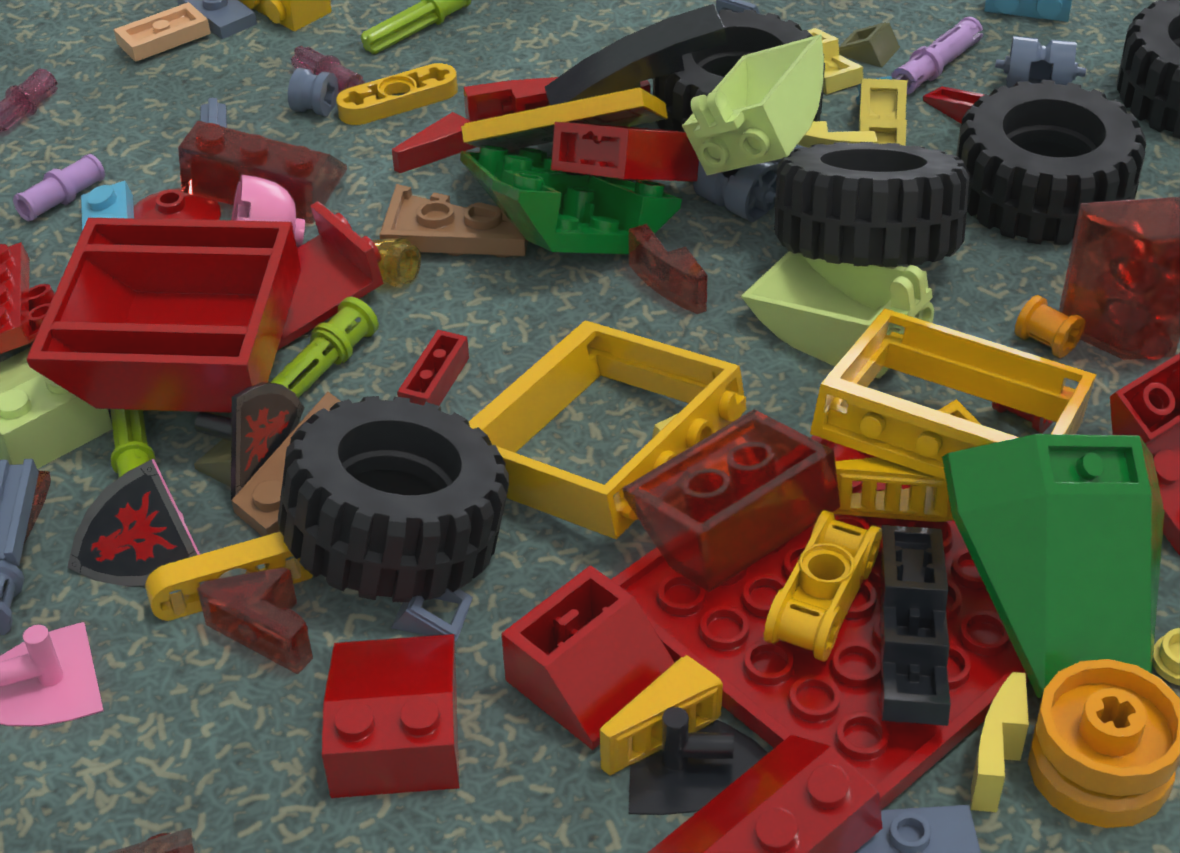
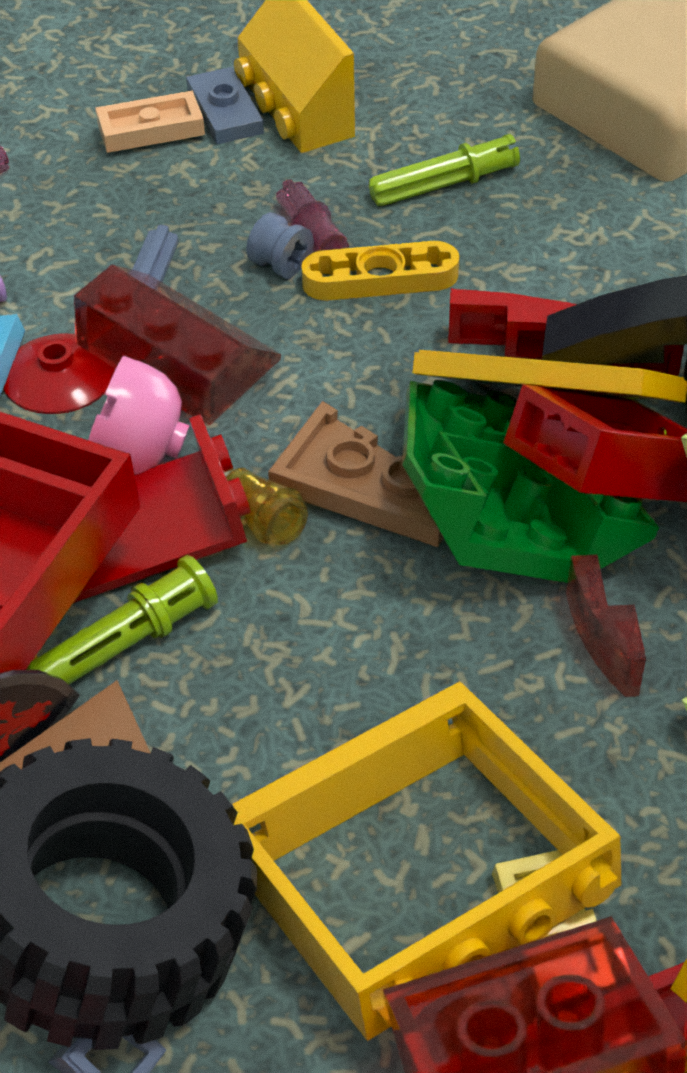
camera: 20 degrees right, 5 degrees up
(431, 144) = (390, 352): red piece -> none
(436, 369) = (252, 694): red piece -> none

